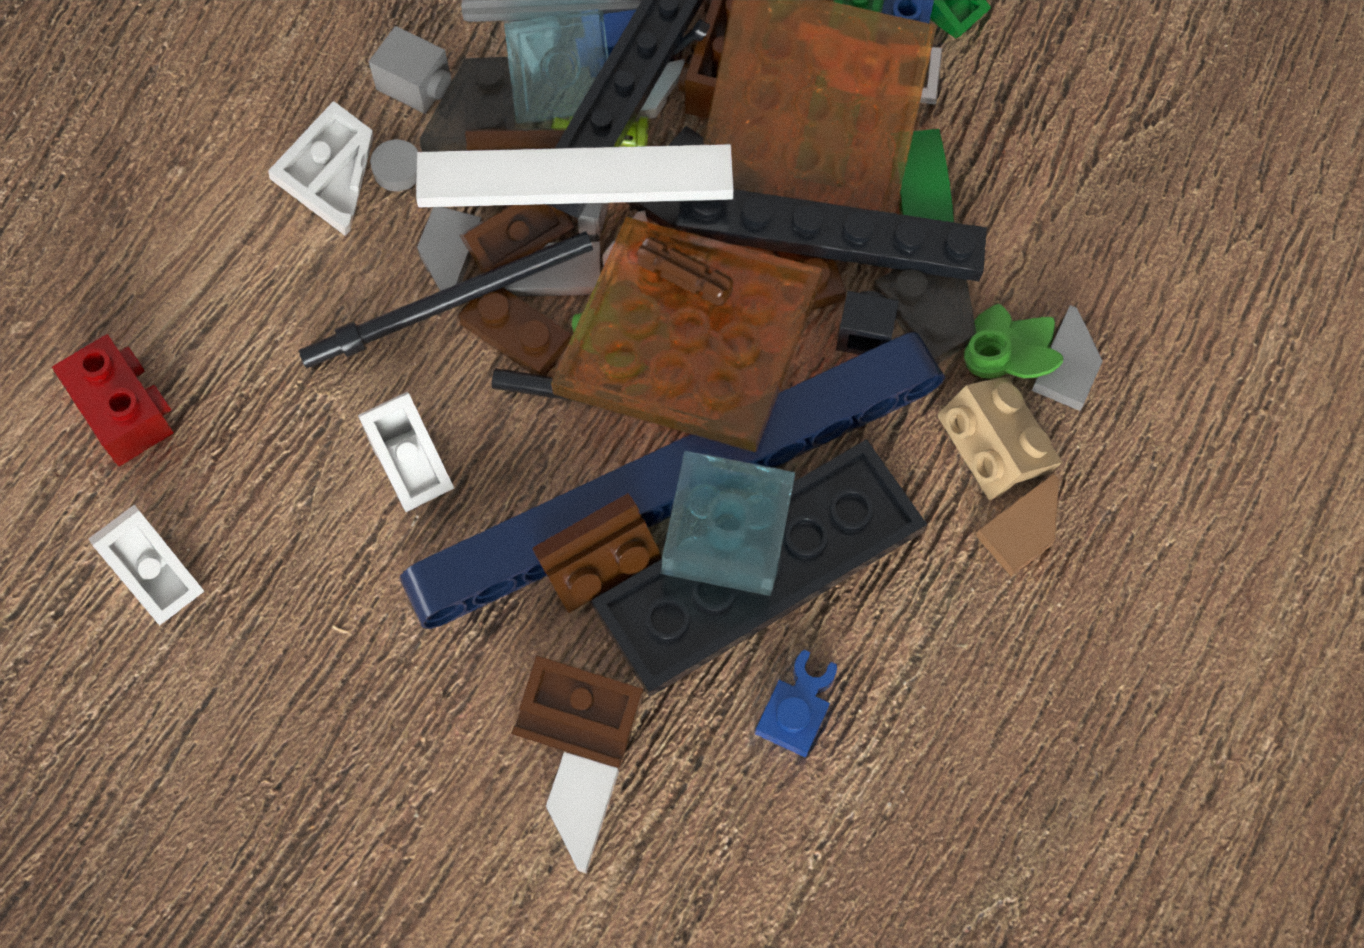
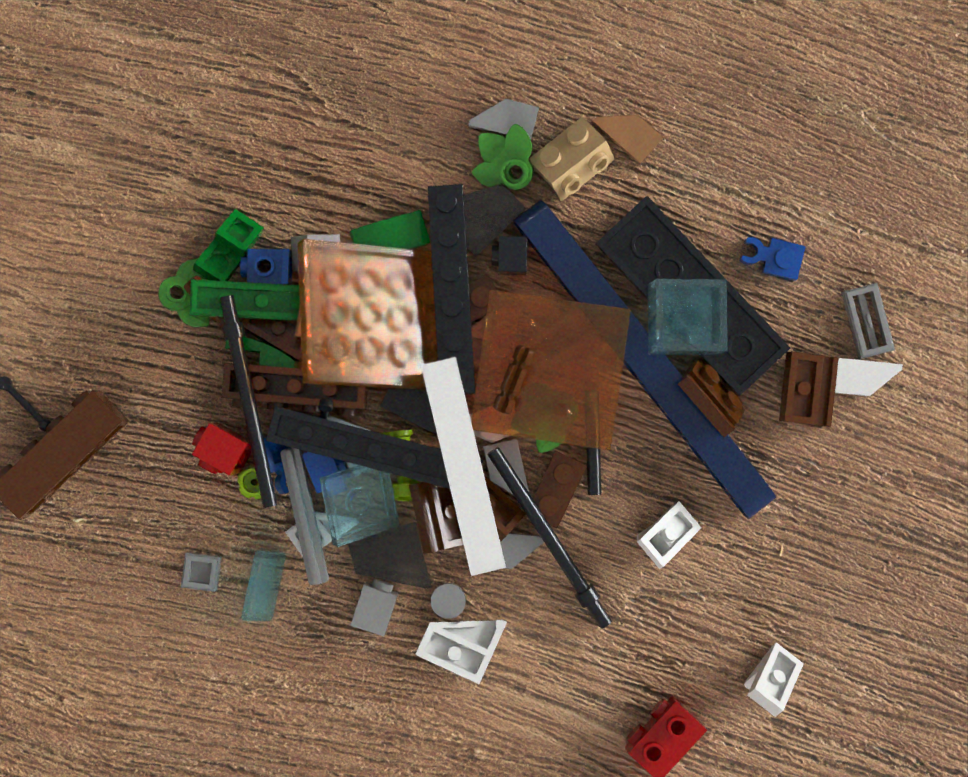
camera: 100 degrees left, 20 degrees up
(672, 855) = (854, 322): none -> light grey tile

